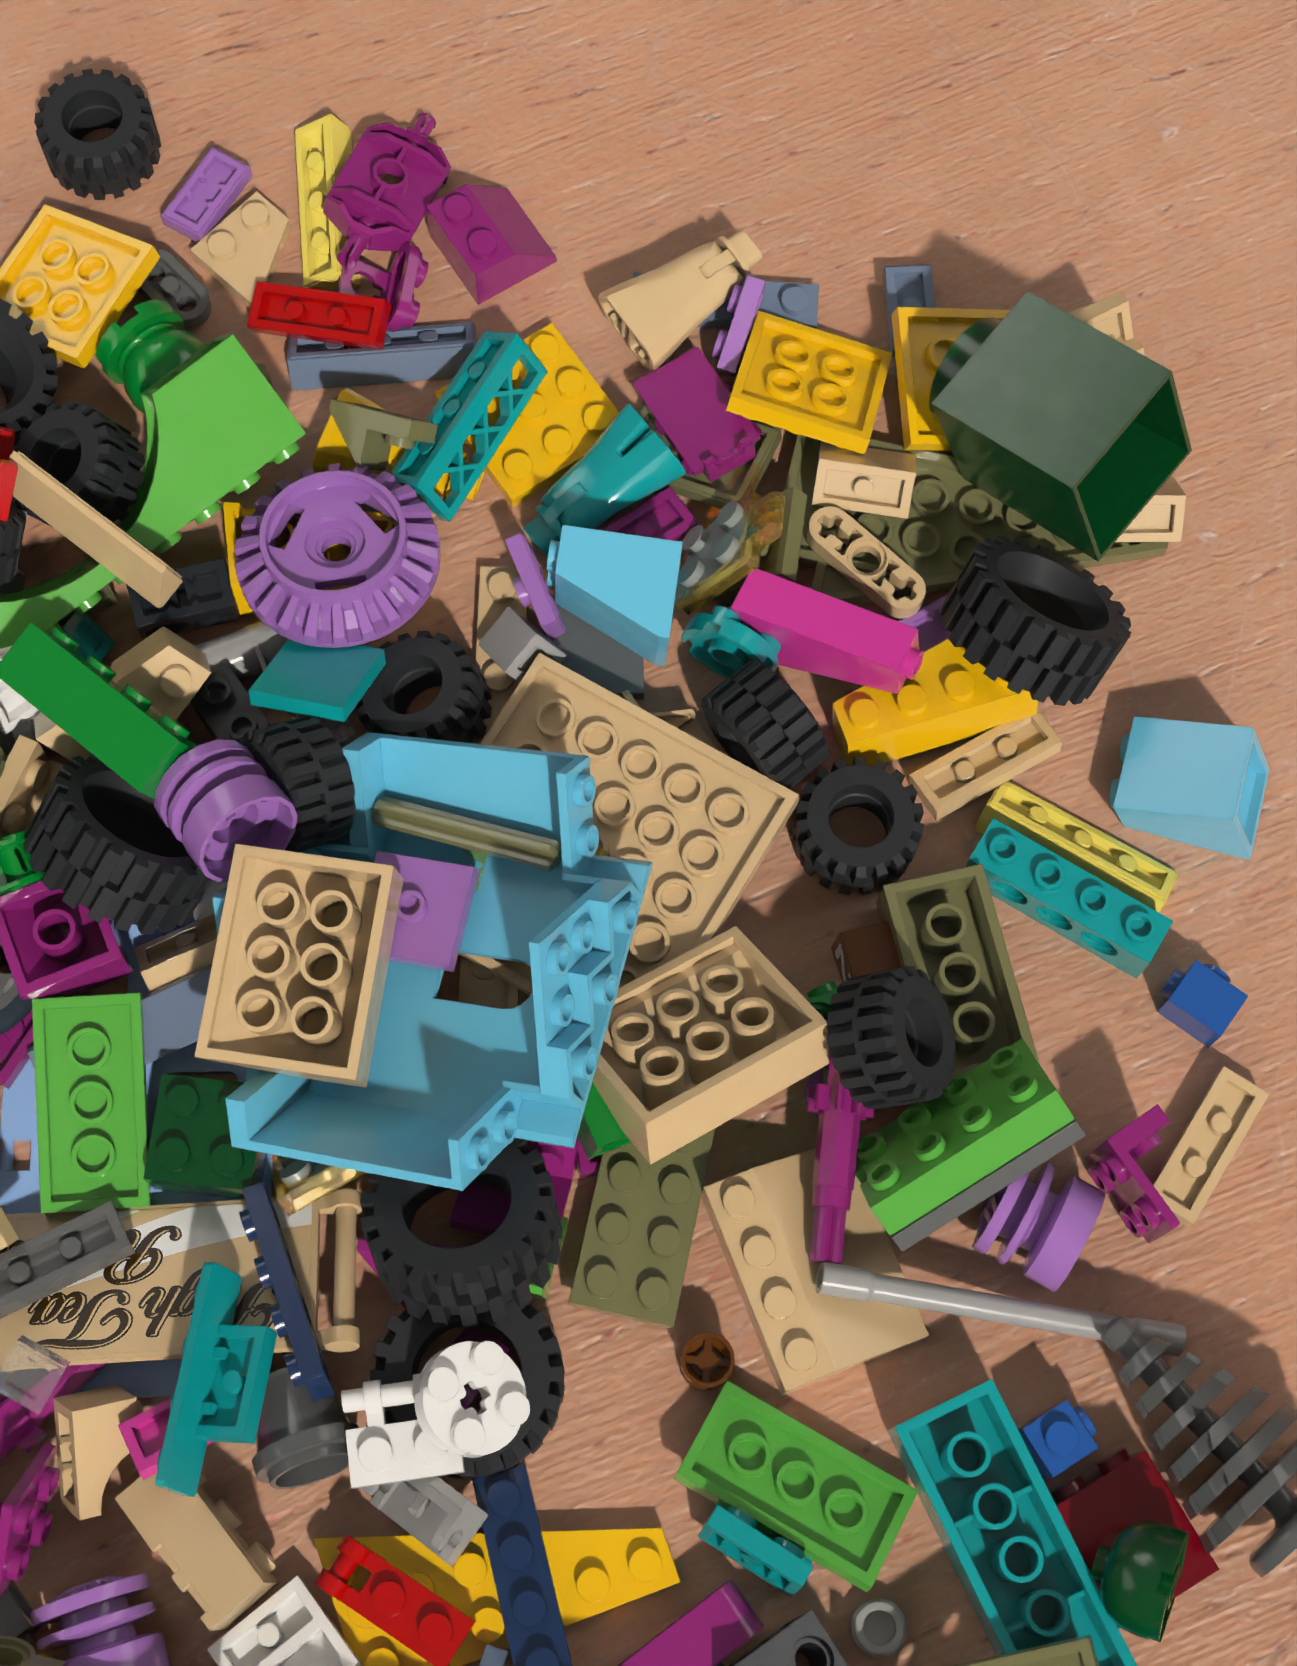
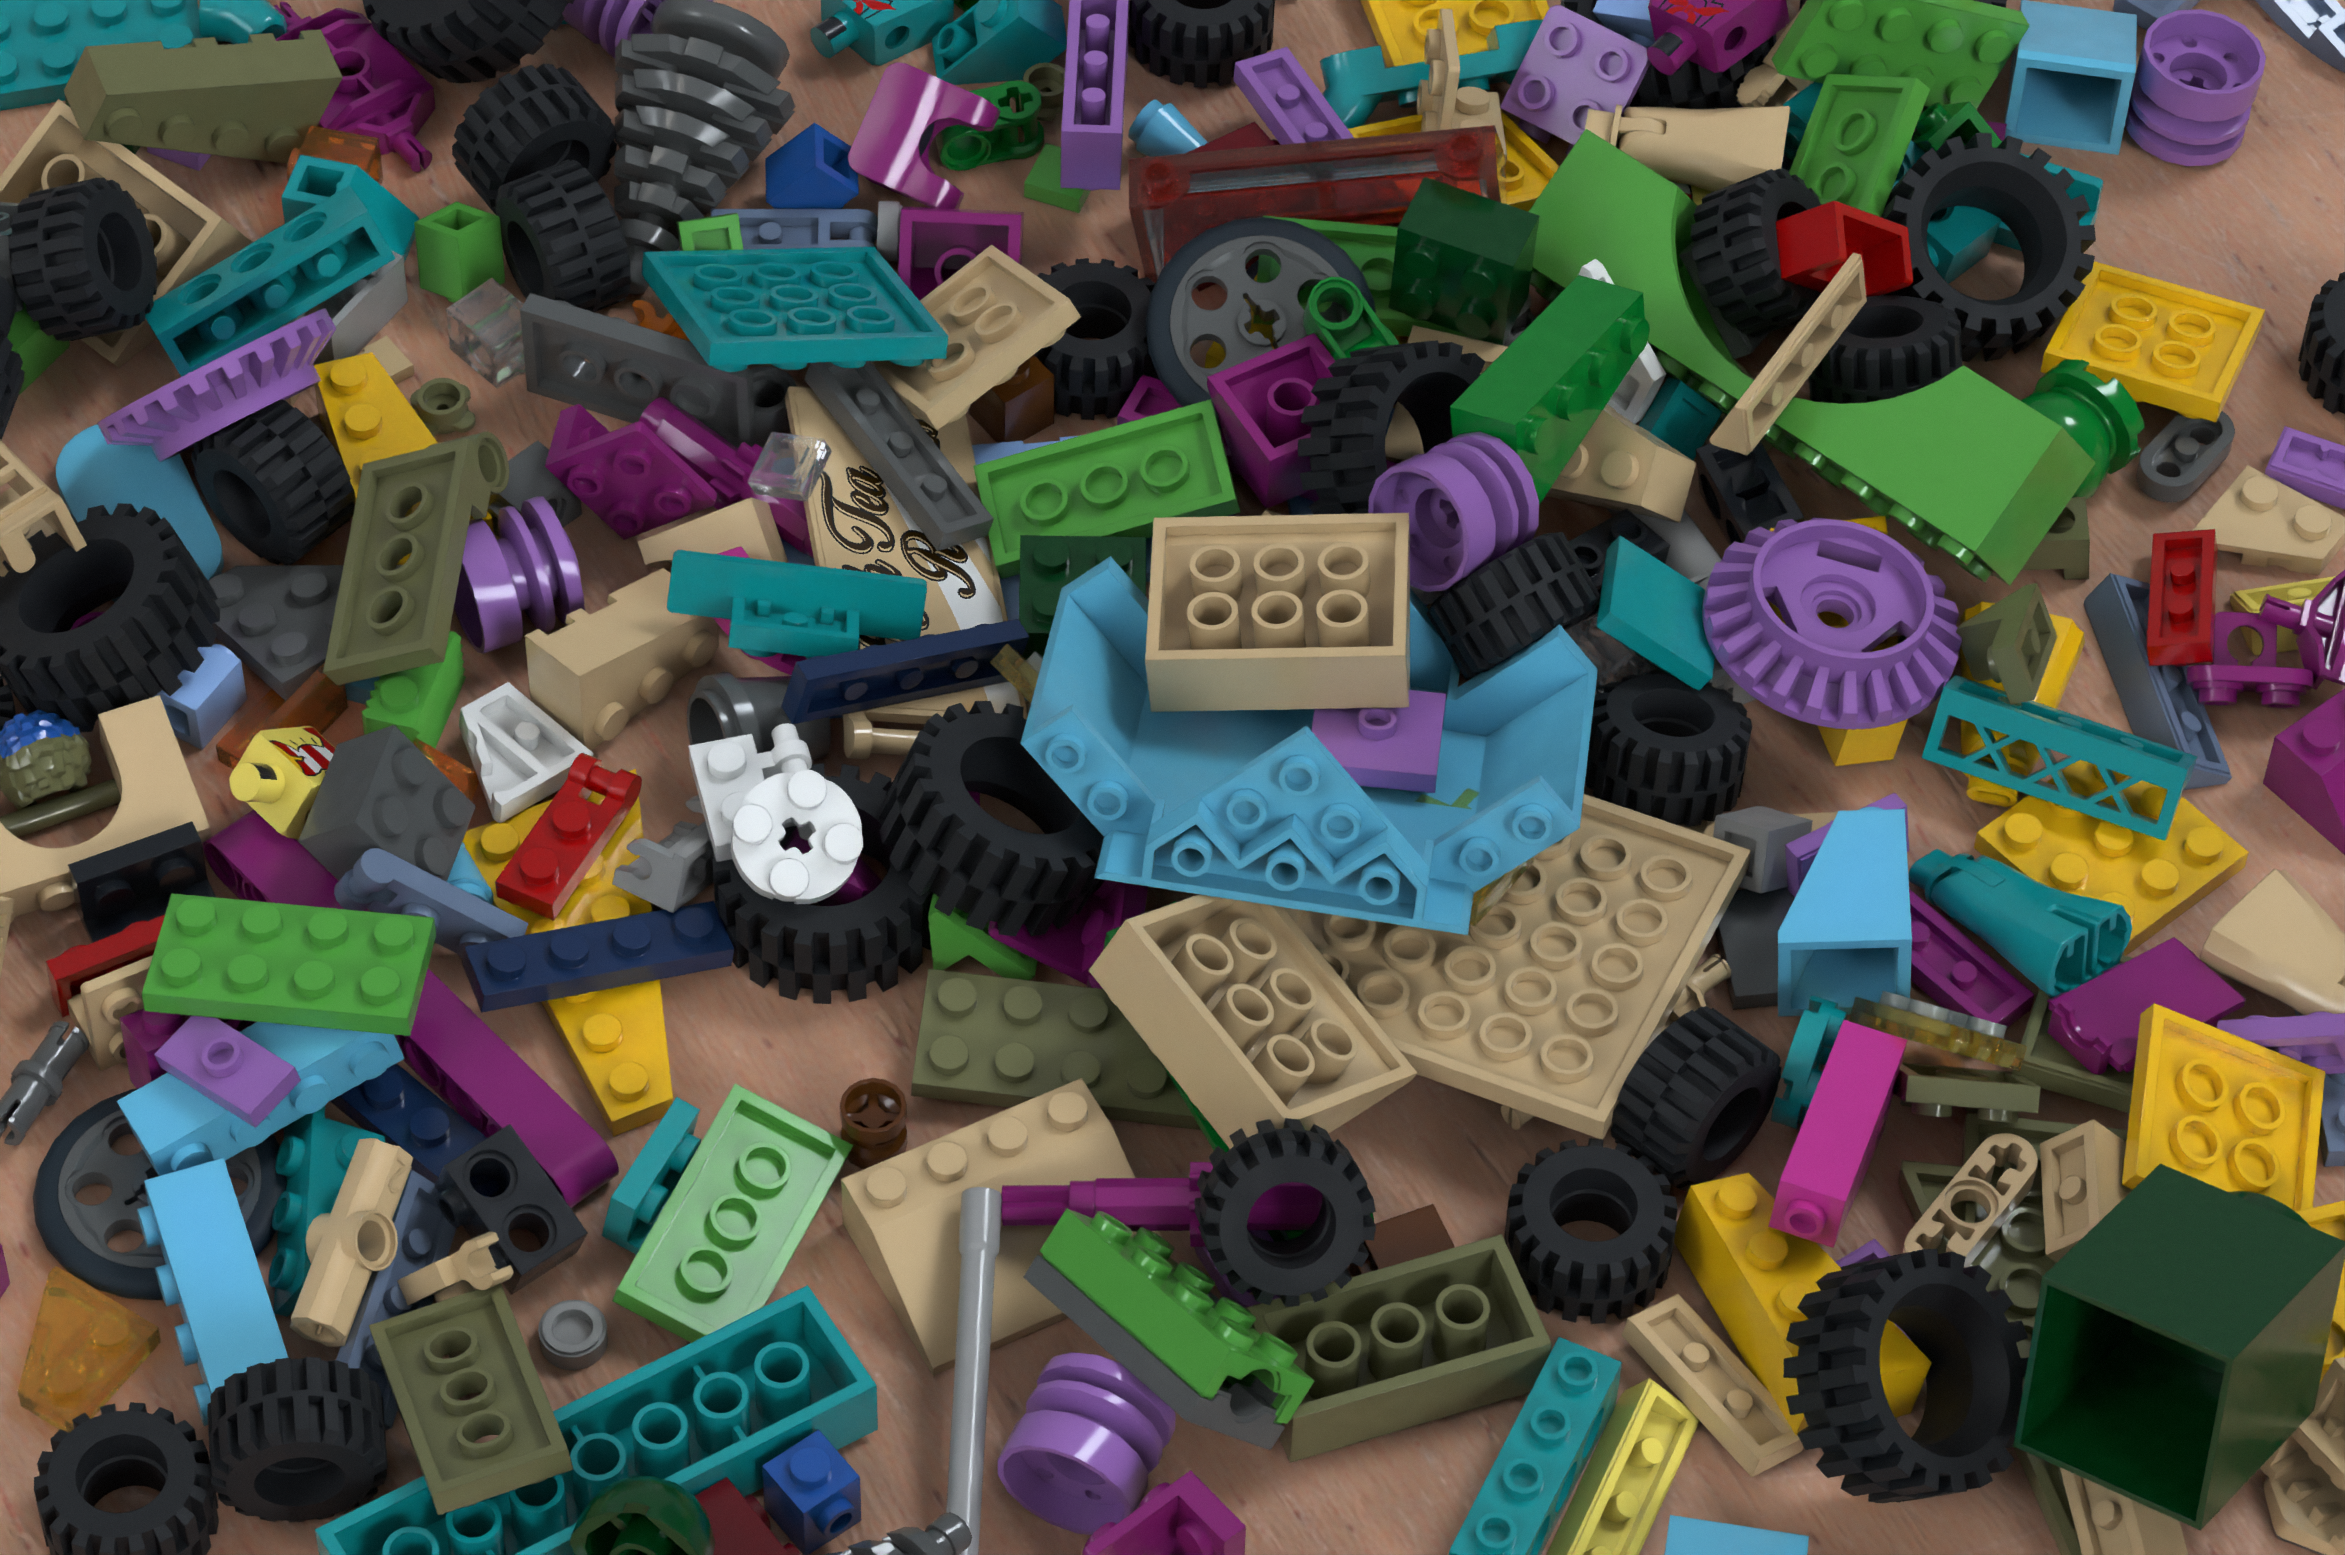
camera: 85 degrees right, 20 degrees down
(467, 833) = (1484, 758): olive axle -> none

